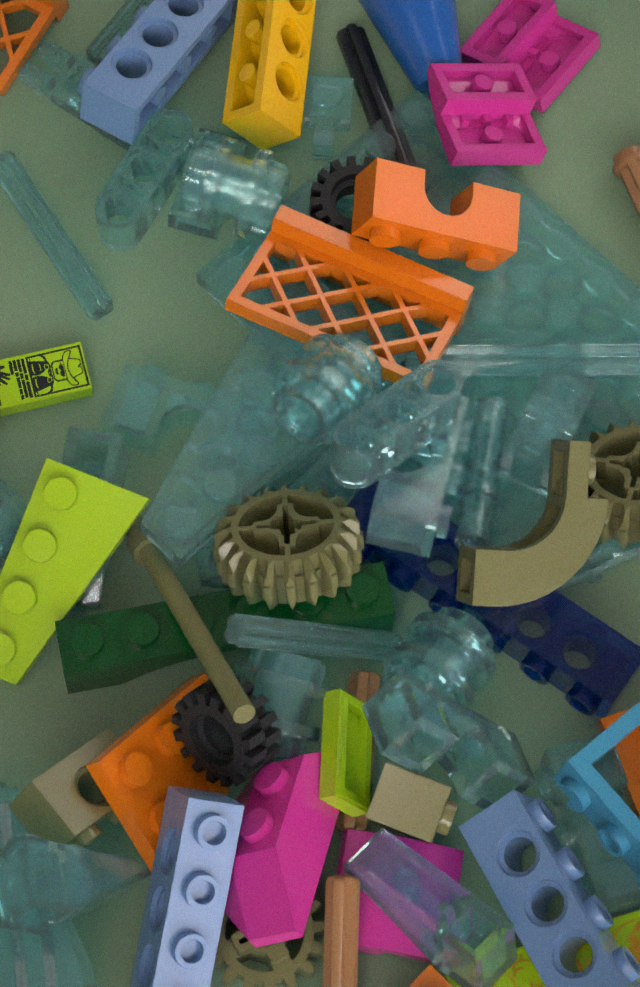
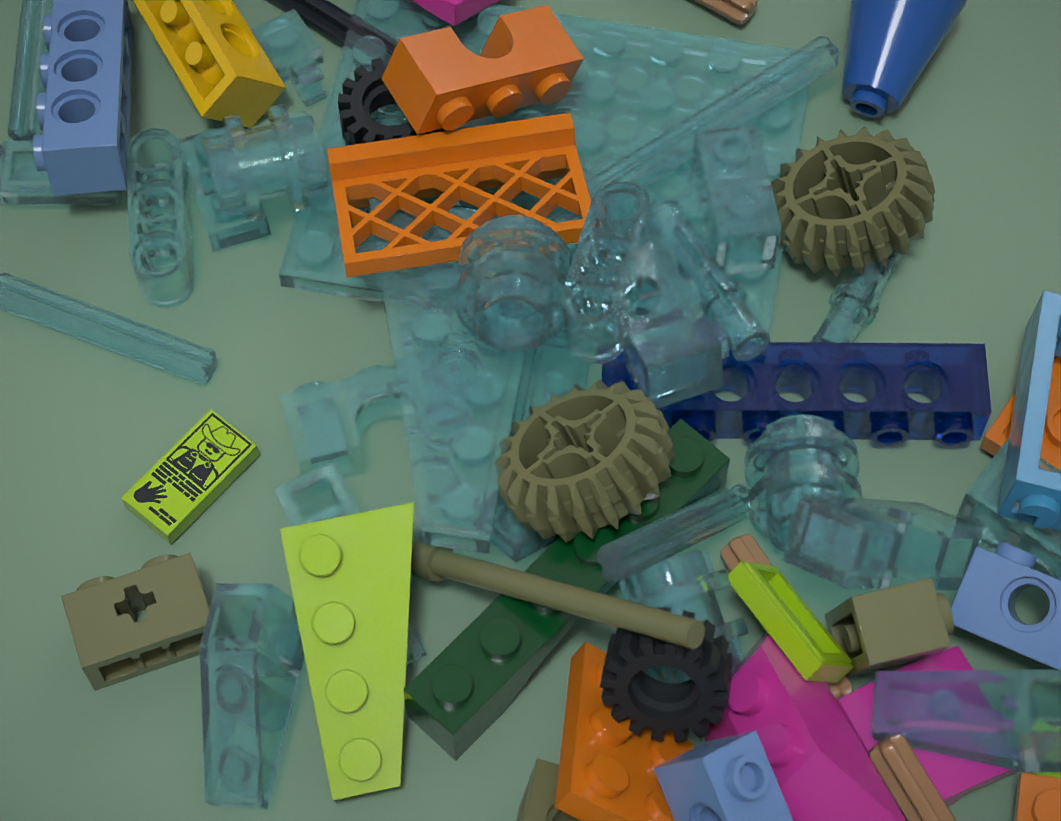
camera: 30 degrees left, 5 degrees down
(552, 549) = (834, 293): olive arch -> none

